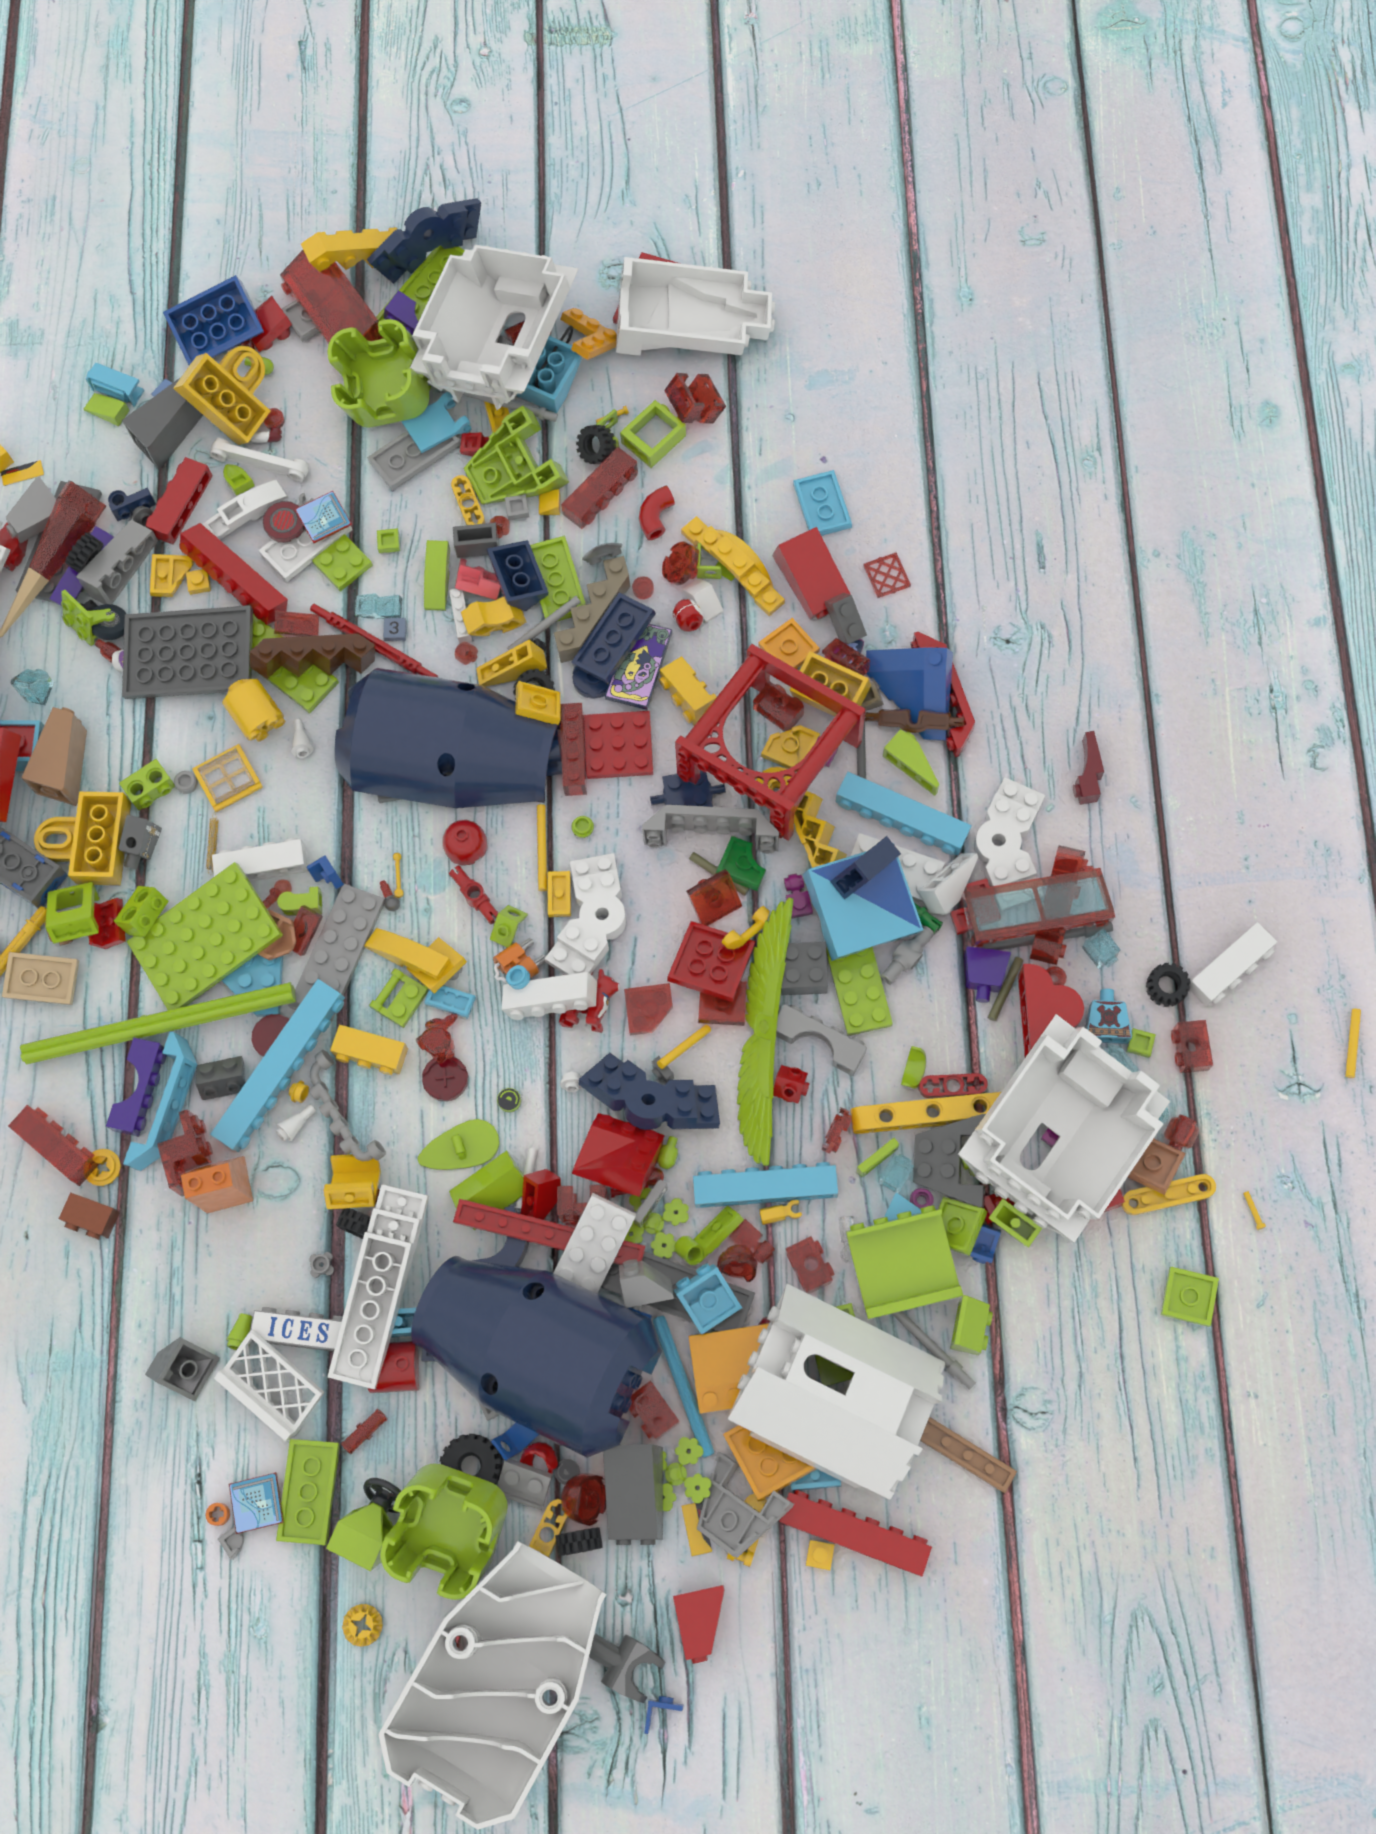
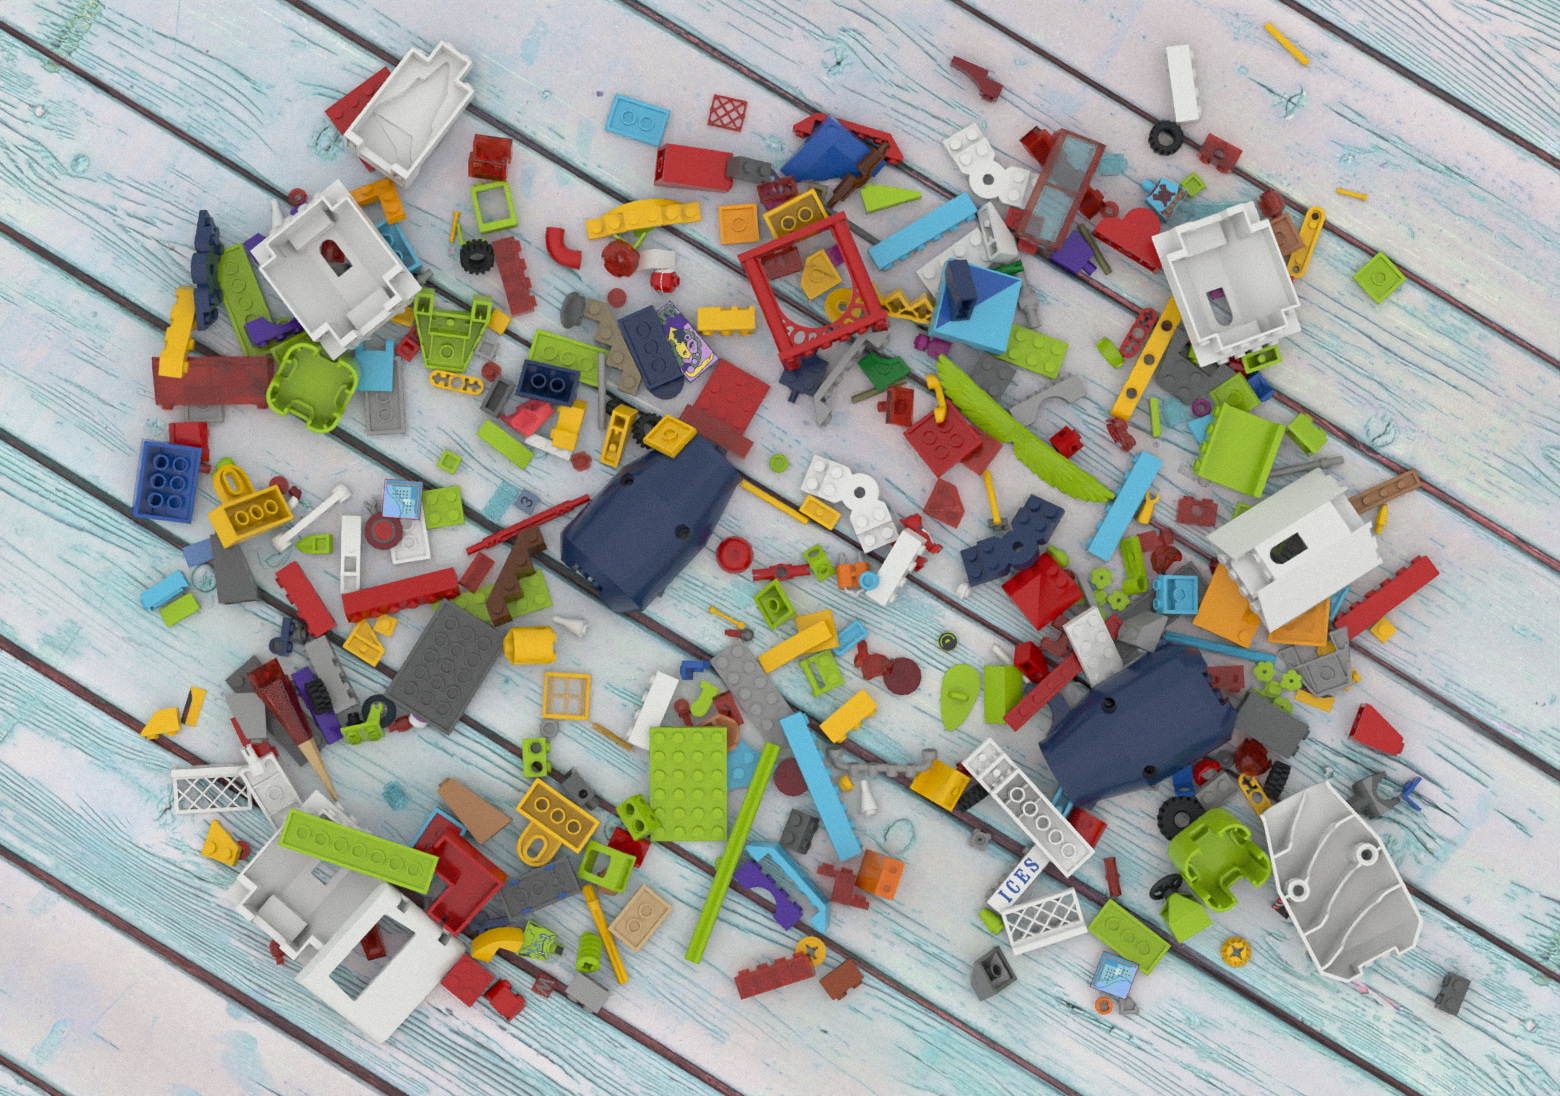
camera: 65 degrees left, 15 degrees up
(439, 909) = (775, 605): none -> lime slope
(938, 1472) = (1381, 519): none -> yellow bar

